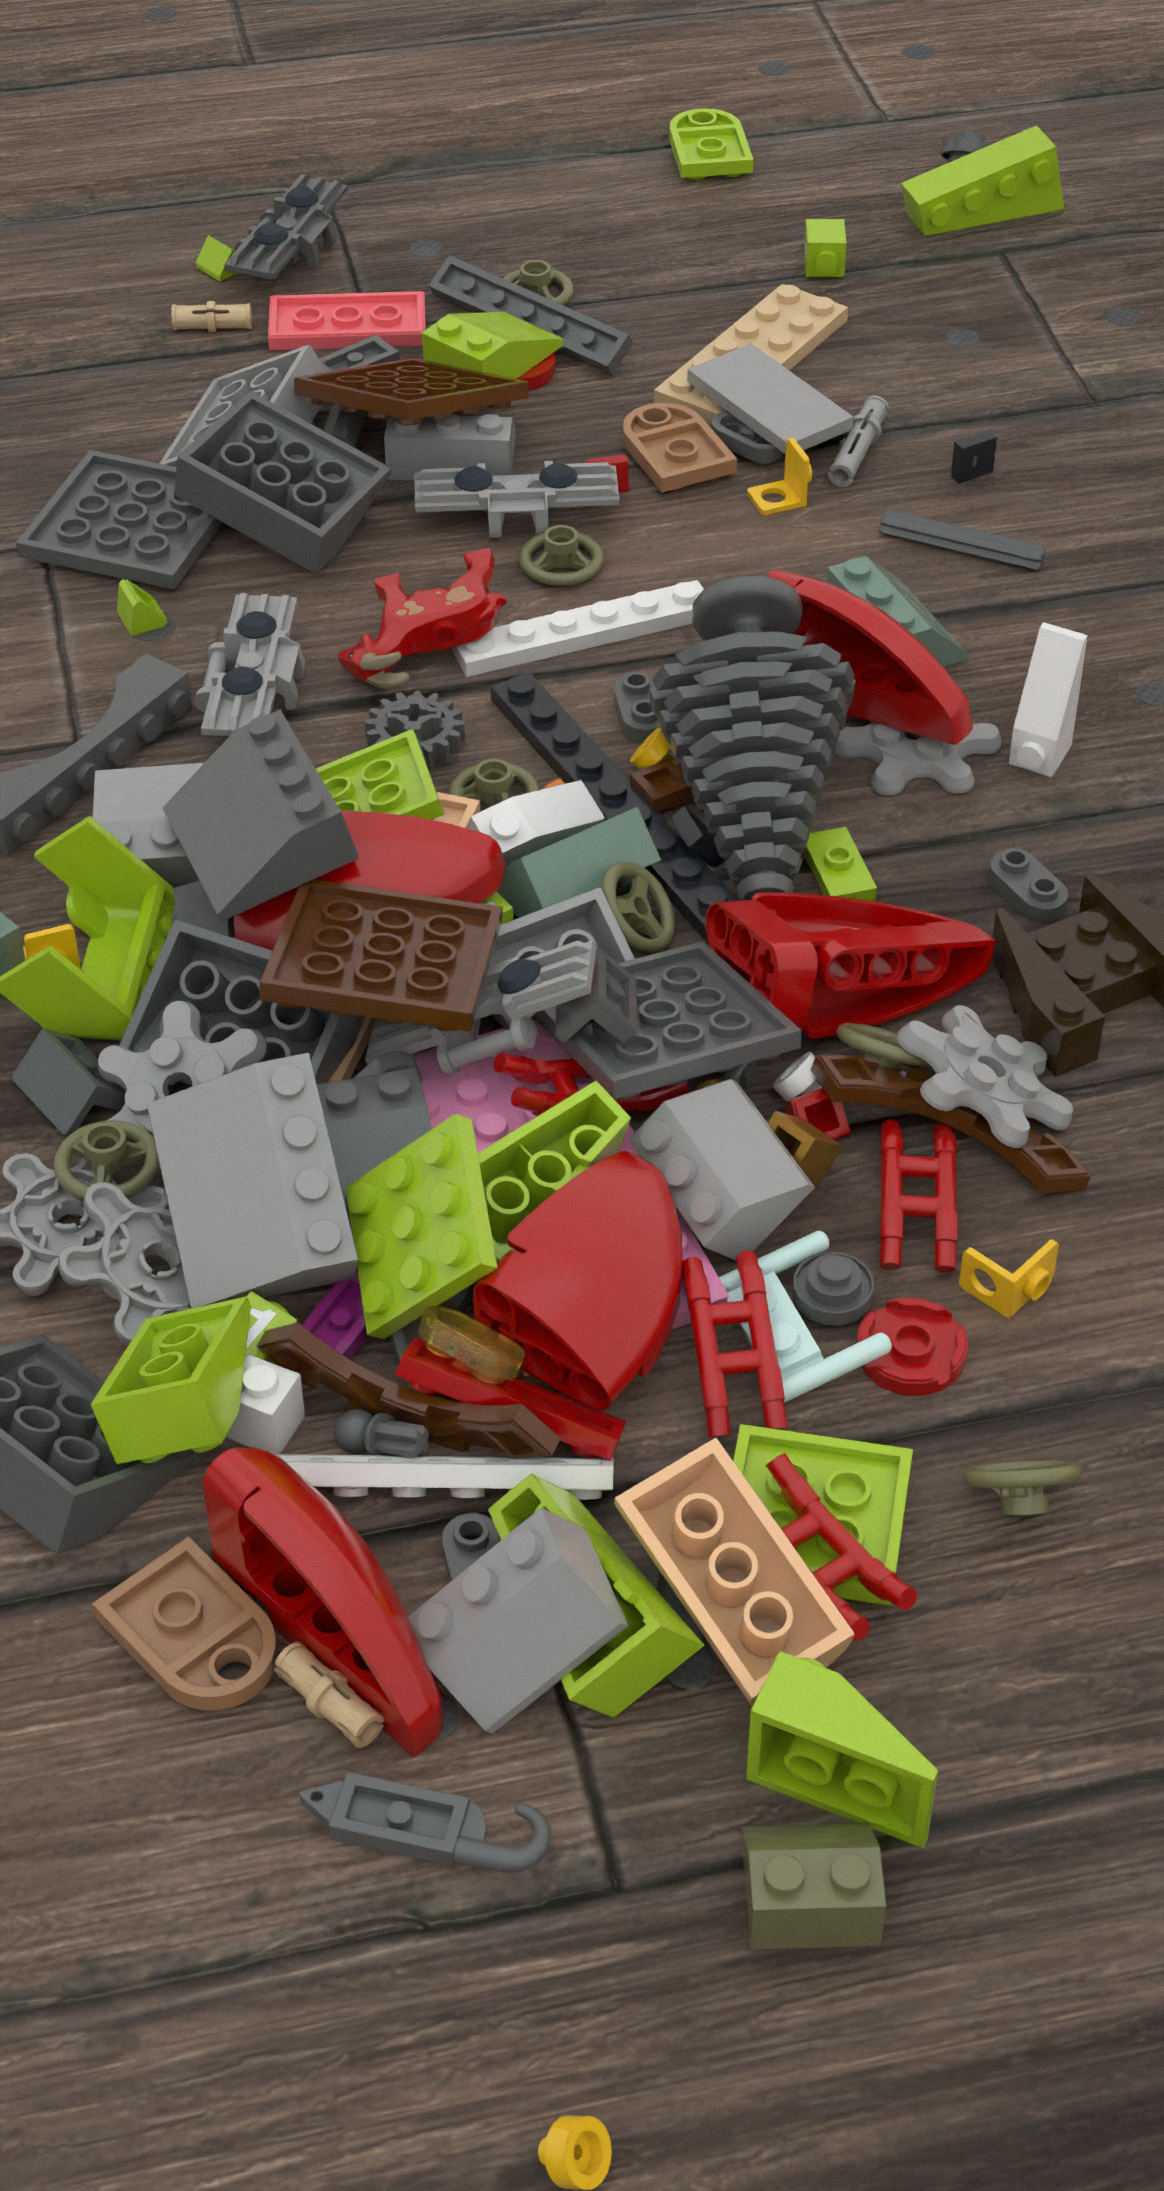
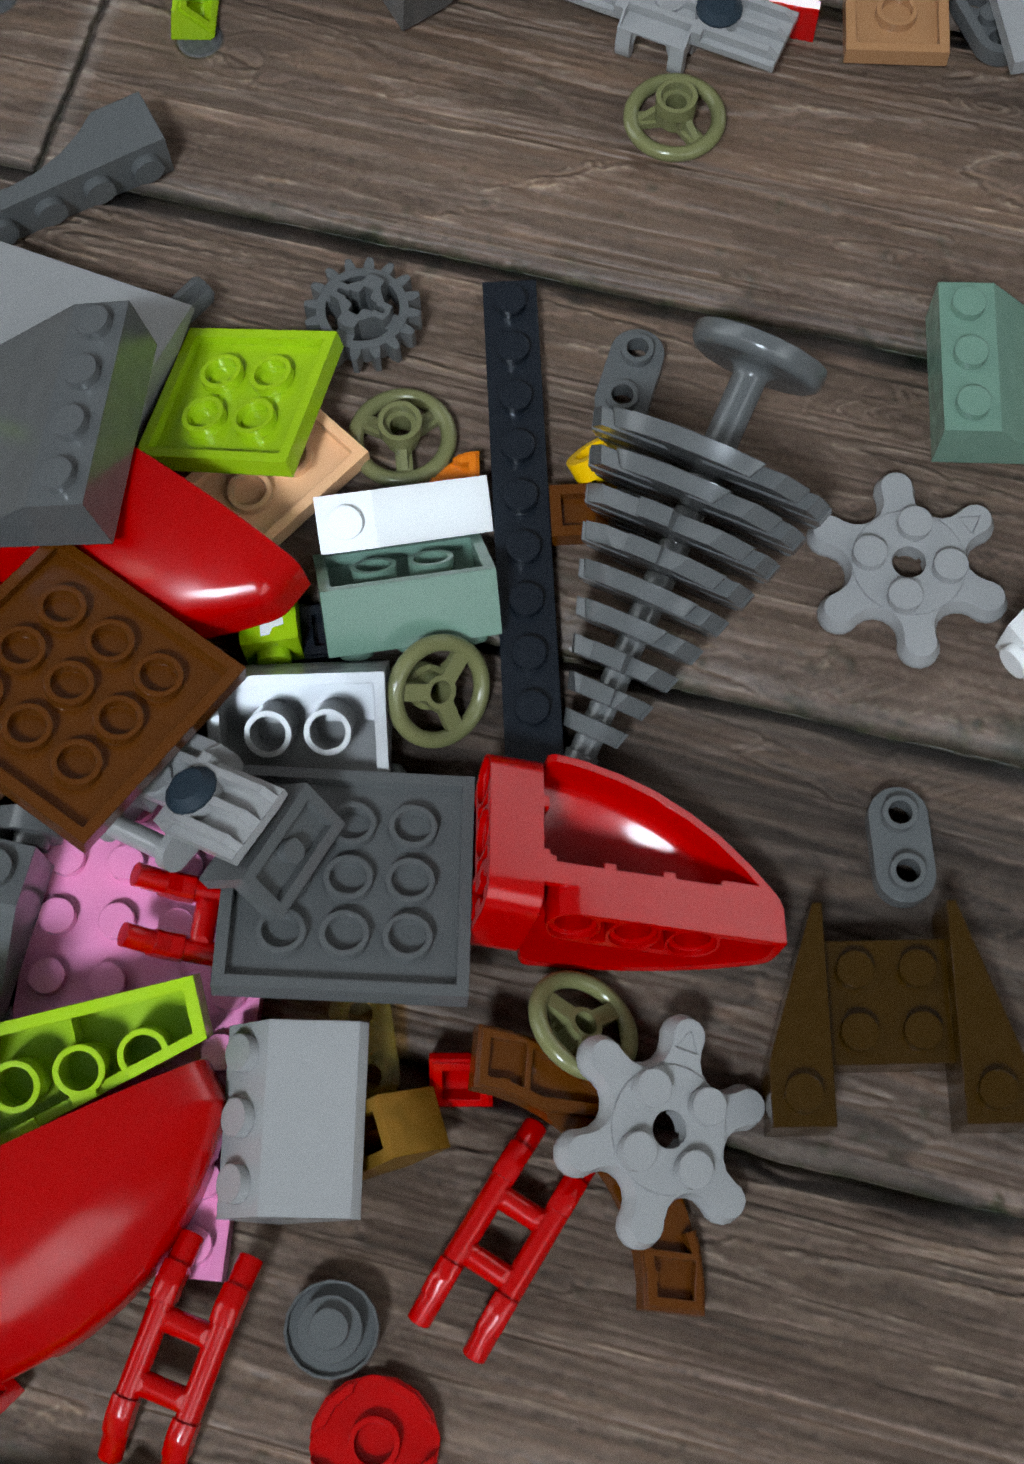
camera: 30 degrees right, 25 degrees up
(259, 662) = (265, 141): light grey piece -> none
(425, 622) = (458, 163): red animal -> none
(580, 628) = (638, 234): white plate -> none
(697, 836) = (561, 608): black tile -> none
(792, 488) = (994, 113): yellow bracket -> none
(796, 1350) = (246, 1378): light aqua plate -> none
(797, 1078) = (481, 1009): white tile -> none
(839, 865) = (704, 720): lime plate -> none
(894, 672) = (888, 454): red panel -> none
(1011, 1289) = (537, 1442): yellow bracket -> none

